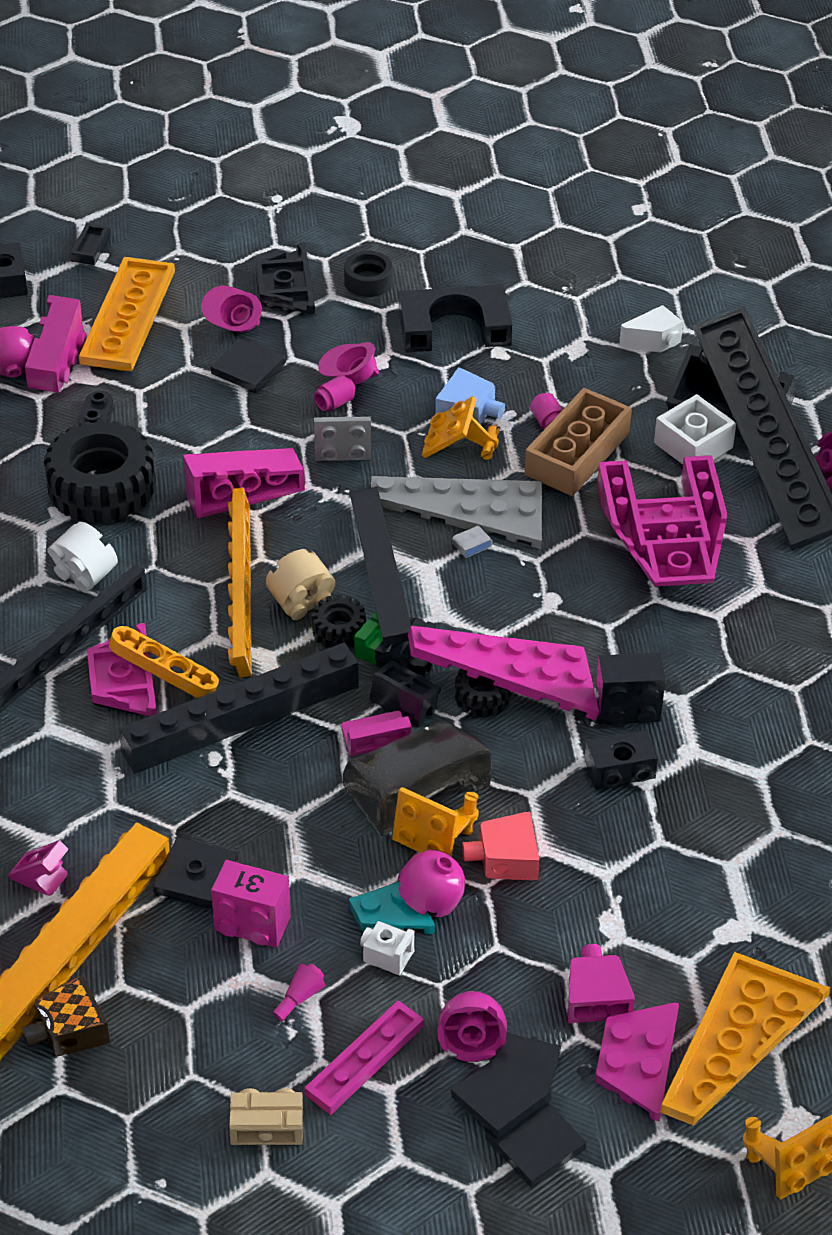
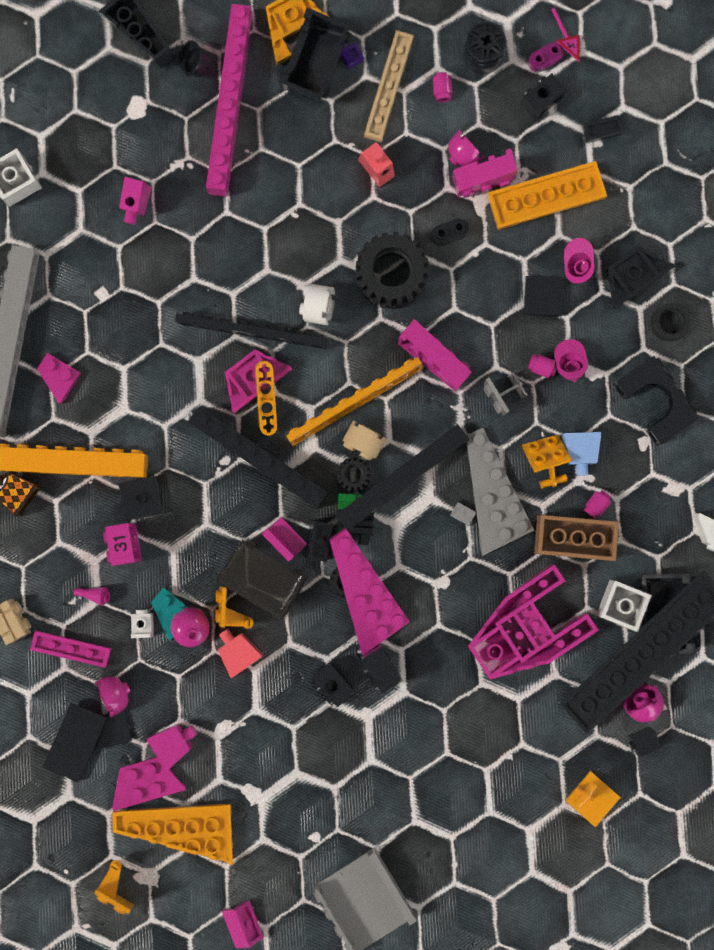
camera: 65 degrees right, 40 degrees up
(41, 868) = (97, 418): dark pink slope -> none

